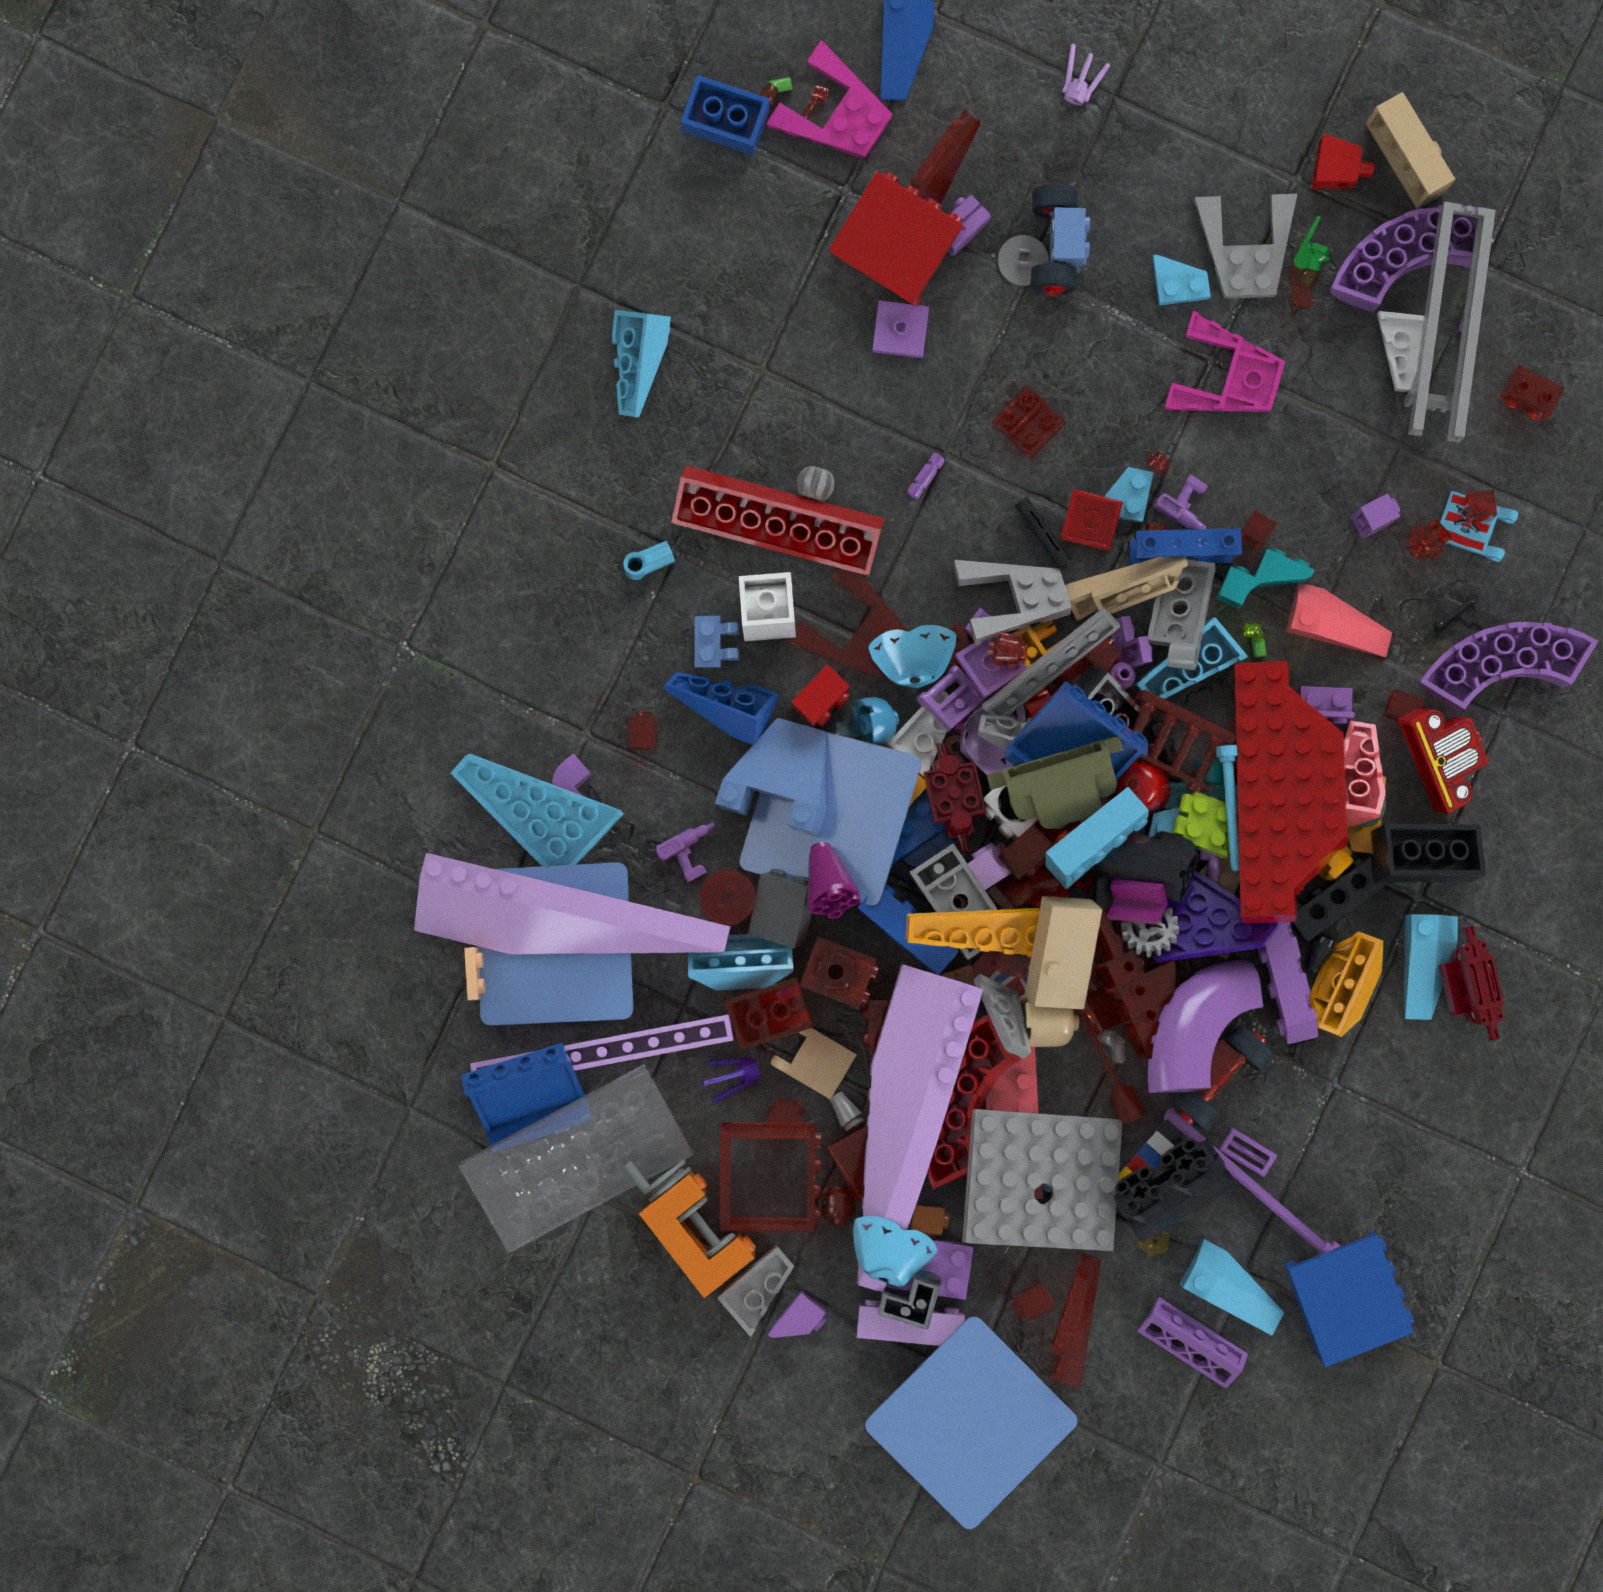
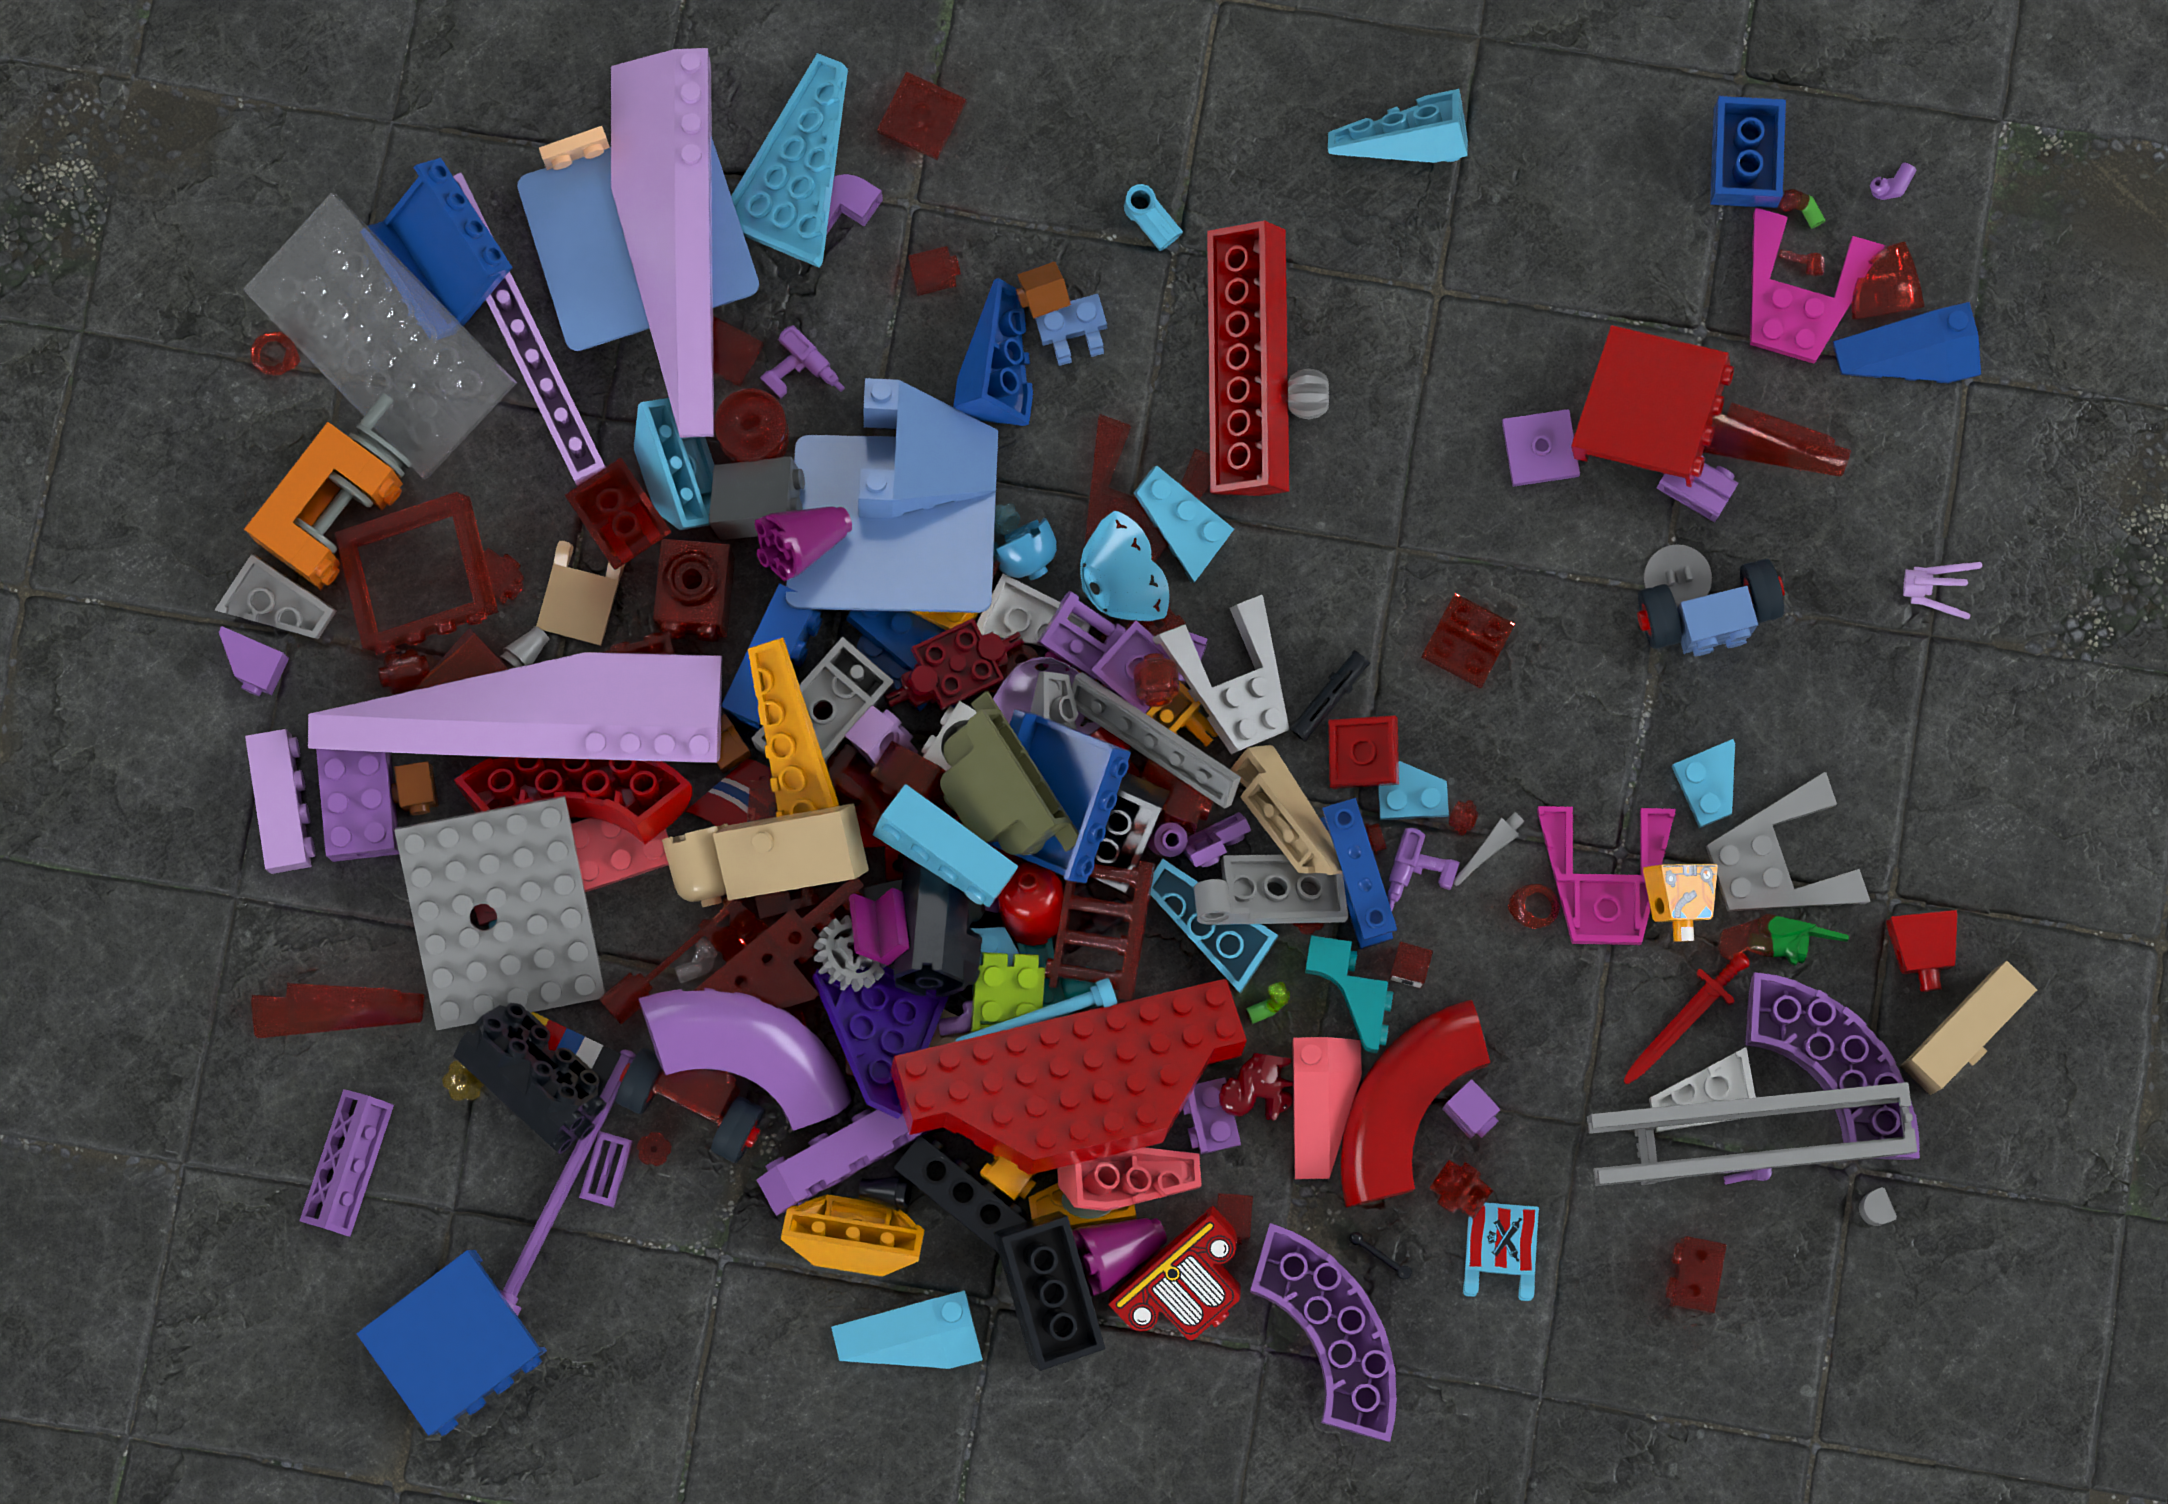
camera: 75 degrees right, 5 degrees down
(521, 708) = (921, 115): none -> clear red plate
(574, 1231) = (290, 359): none -> clear red piece
(662, 895) = (733, 351): none -> clear red plate
(682, 655) = (1042, 290): none -> dark orange brick
(745, 1071) = (542, 515): dark purple plant -> none
(767, 606) = (1131, 373): white brick -> none
(778, 20) = (1895, 186): none -> medium lavender arm
(821, 697) = (1036, 472): red brick -> none
(852, 45) = (1888, 285): none -> clear red brick
(886, 600) = (1183, 520): none -> medium azure wing
(891, 1253) = (355, 741): medium azure piece -> none
(913, 1307) = (301, 793): black brick -> none
(925, 476) = (1360, 530): medium lavender axle -> none
(971, 1422) = (176, 909): medium blue piece -> none
(1006, 1015) = (696, 805): light grey wing -> none
(1032, 1301) = (346, 945): clear red brick -> none
(1179, 441) = (1499, 837): none -> light grey piece
(1223, 1282) = (428, 1186): medium azure wedge -> none
(1233, 443) = (1518, 910): none -> clear red piece
(1245, 1120) = (644, 1147): none -> clear red plate
(1259, 323) = (1681, 895): none -> light orange torso
(1310, 662) = (1256, 1079): none -> dark red animal
(1343, 346) = (1688, 1015): none -> red sword
(1347, 563) = (1396, 1096): none -> red brick
(1406, 796) = (1116, 1249): none -> magenta cone
(1473, 984) = (896, 1396): dark red piece -> none
(1480, 506) = (1524, 1243): clear red brick -> none
(1516, 254) = (1876, 1208): none -> light grey brick

